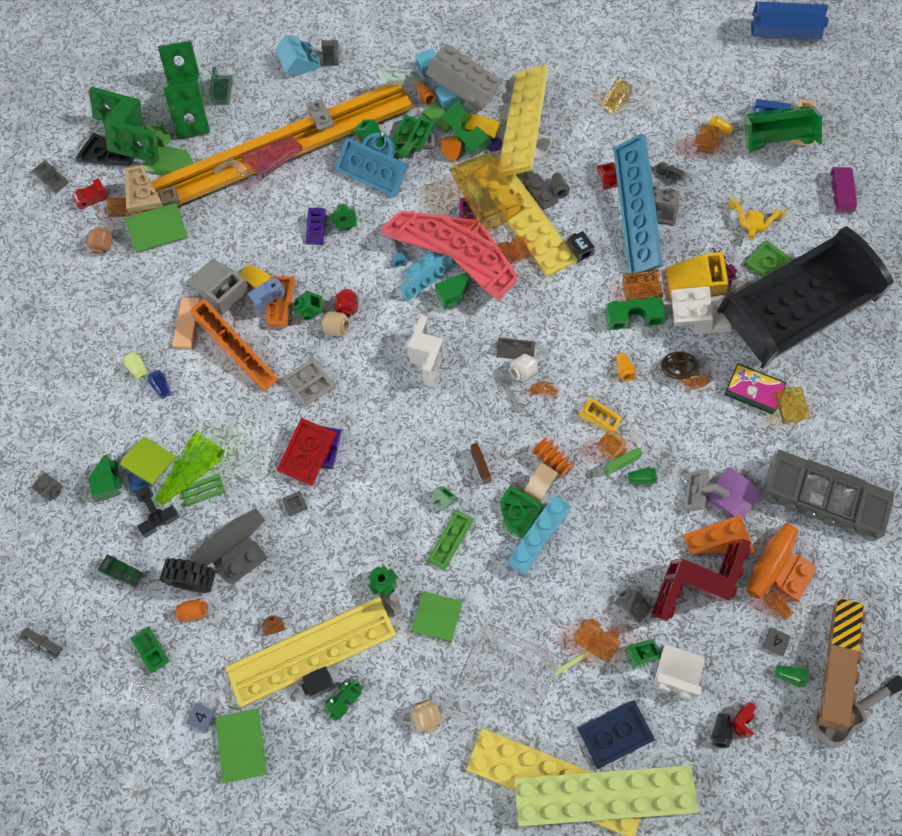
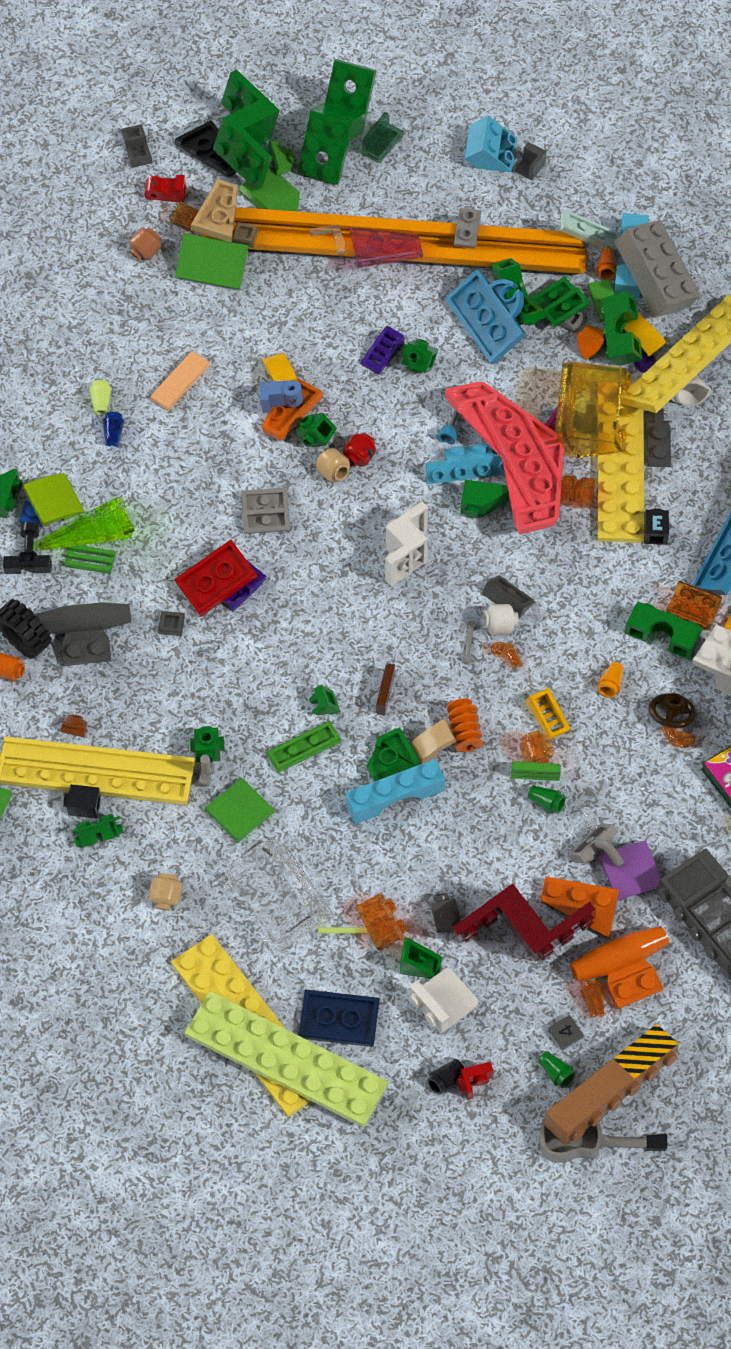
camera: 30 degrees right, 5 degrees down
(219, 285) = (237, 359): light grey slope -> none
(232, 344) = (212, 429): orange slope -> none
(560, 186) = (683, 449): dark grey cone -> none

